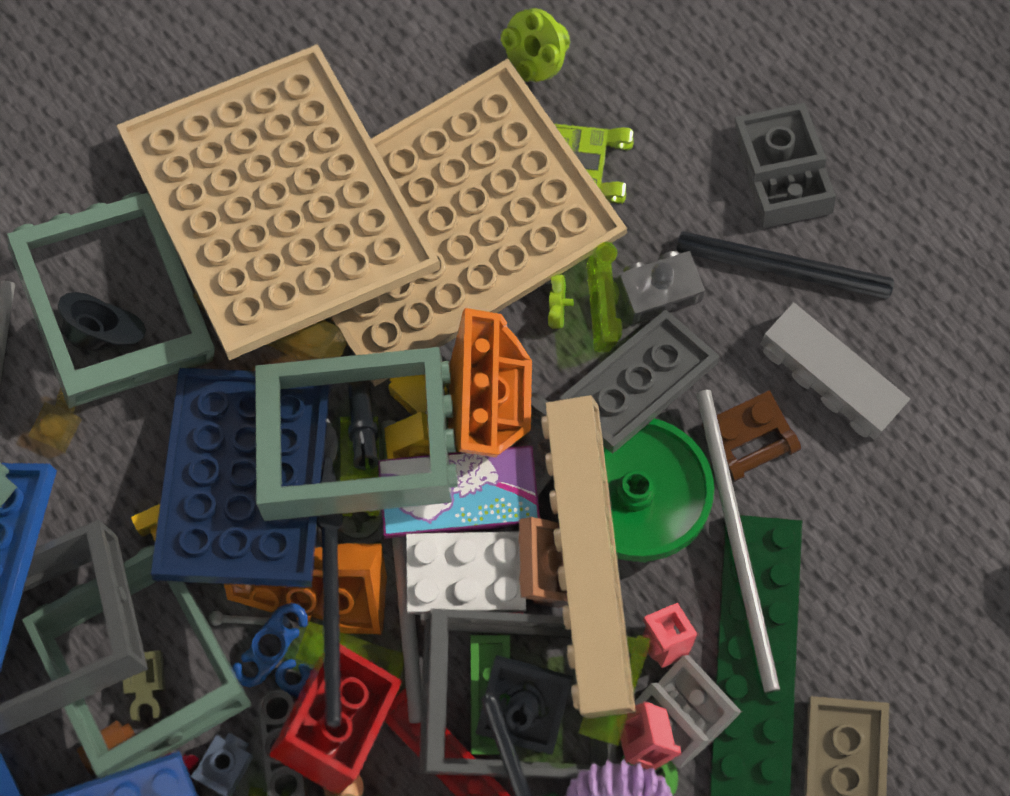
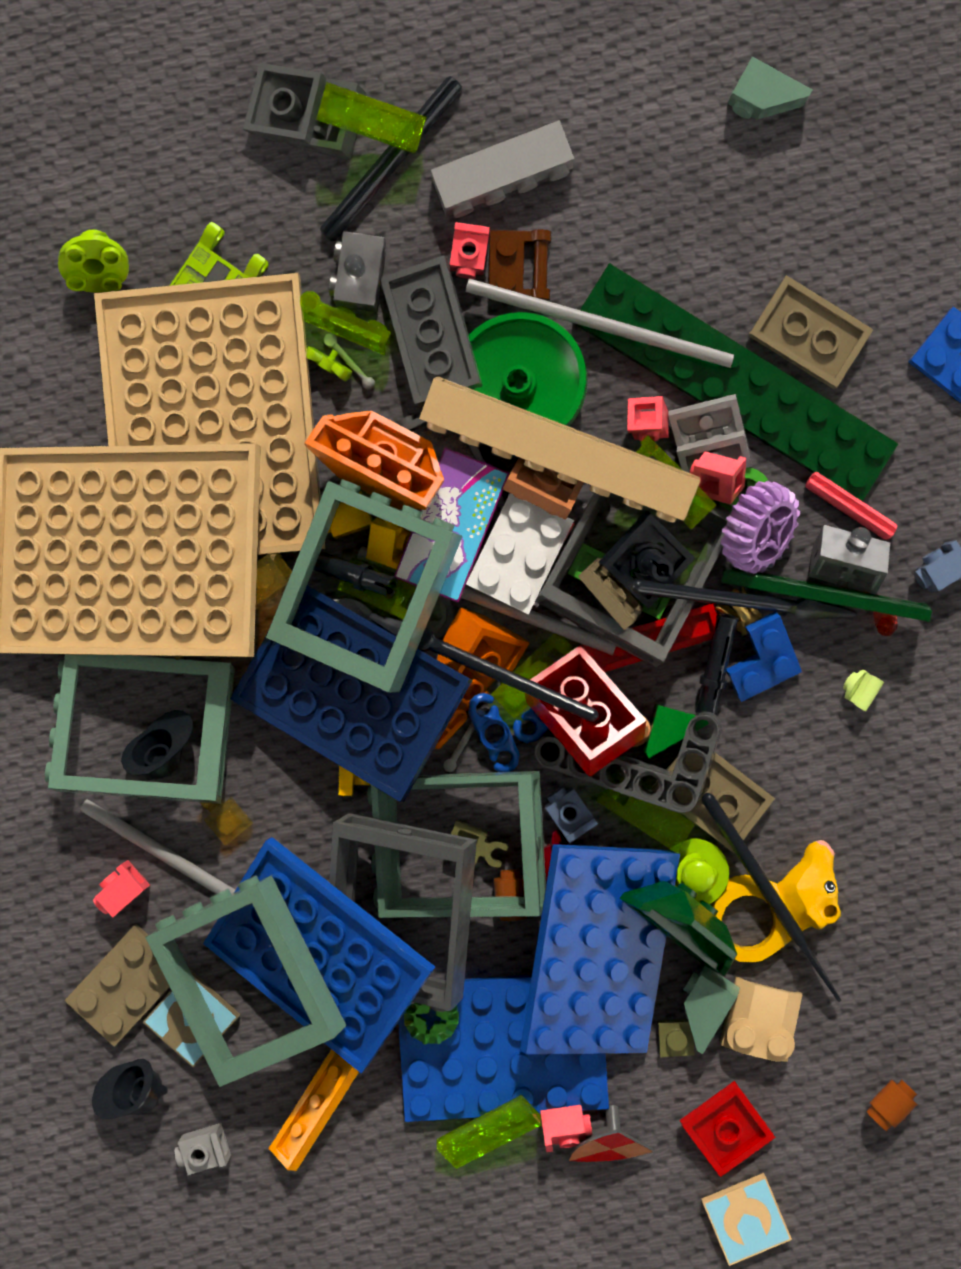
camera: 55 degrees left, 15 degrees up
(468, 683) = (611, 594): none -> dark tan tile
(581, 295) = (331, 341): none -> hinge
(732, 392) = (469, 235): none -> coral brick
(809, 222) = (371, 118): none -> clear neon green plate

